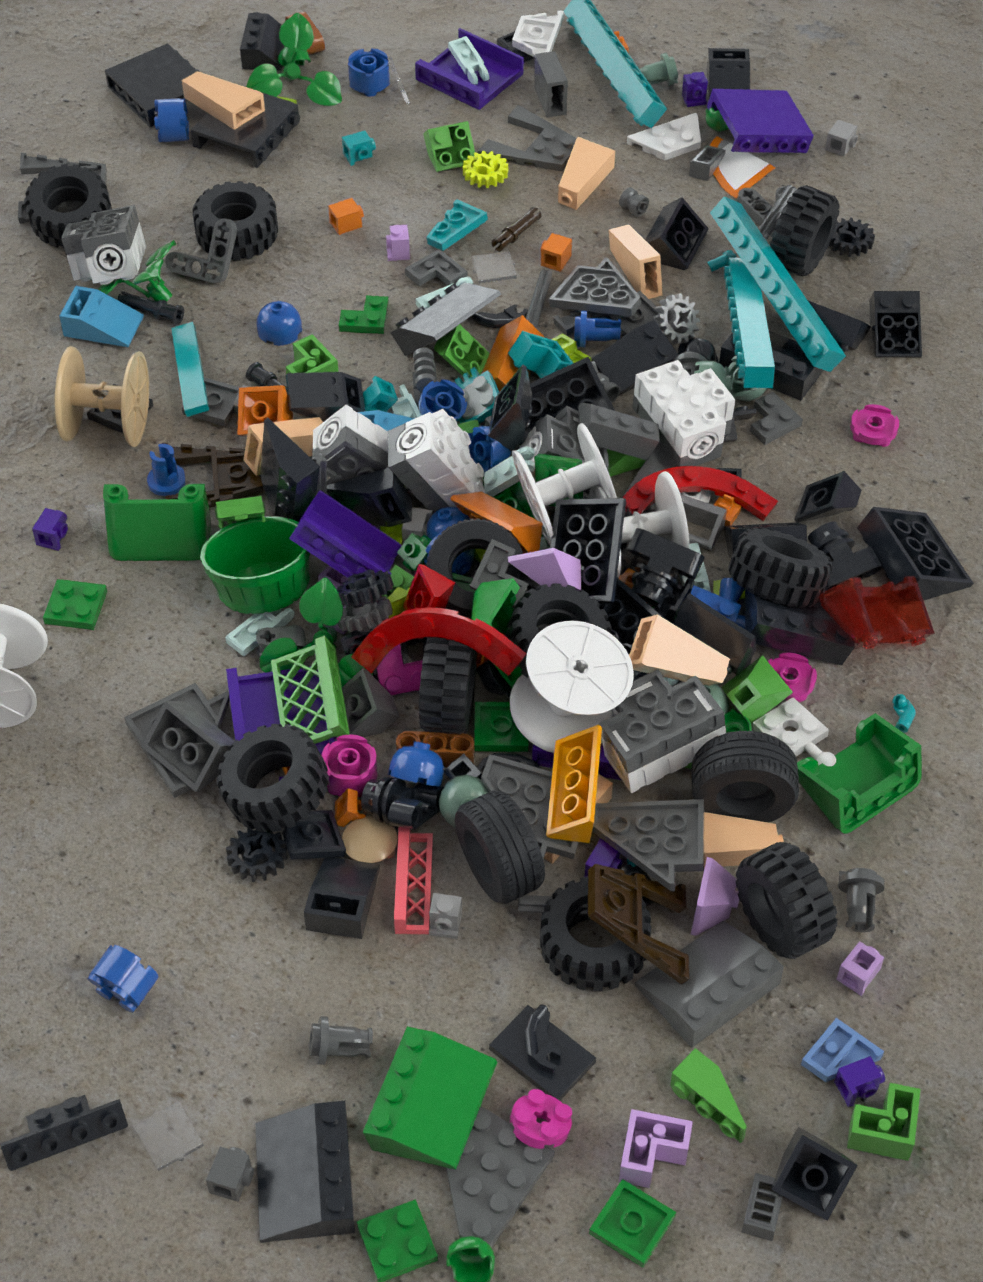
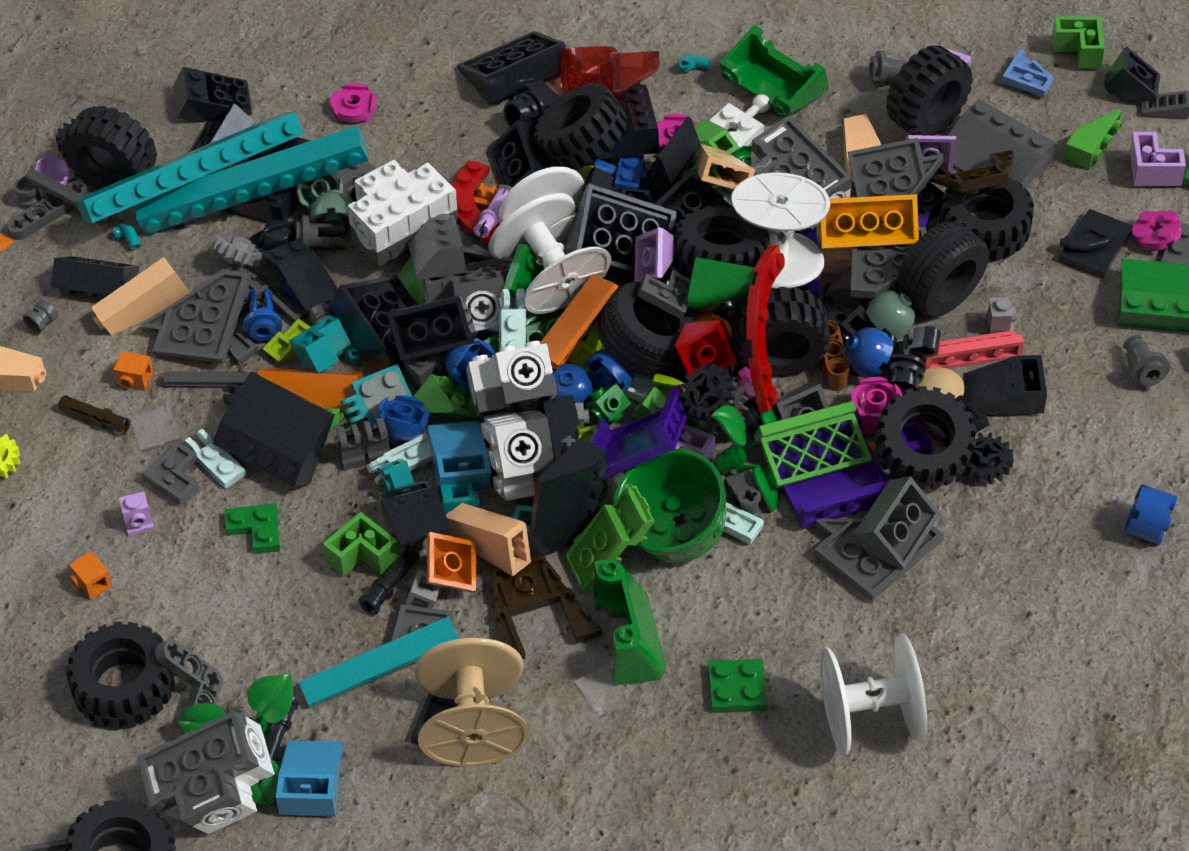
camera: 100 degrees left, 0 degrees up
(50, 529) = (646, 731): dark purple brick -> none
(165, 476) = (547, 644): blue piece -> none
(279, 323) = (284, 601): blue cylinder -> none
(456, 224) = (92, 469): teal wing -> none
(687, 493) = (489, 217): none -> lavender pin
(746, 776) = (822, 115): black tyre -> none
(828, 497) = (464, 125): black slope -> none
(859, 1080) = (1050, 59): dark purple brick -> none

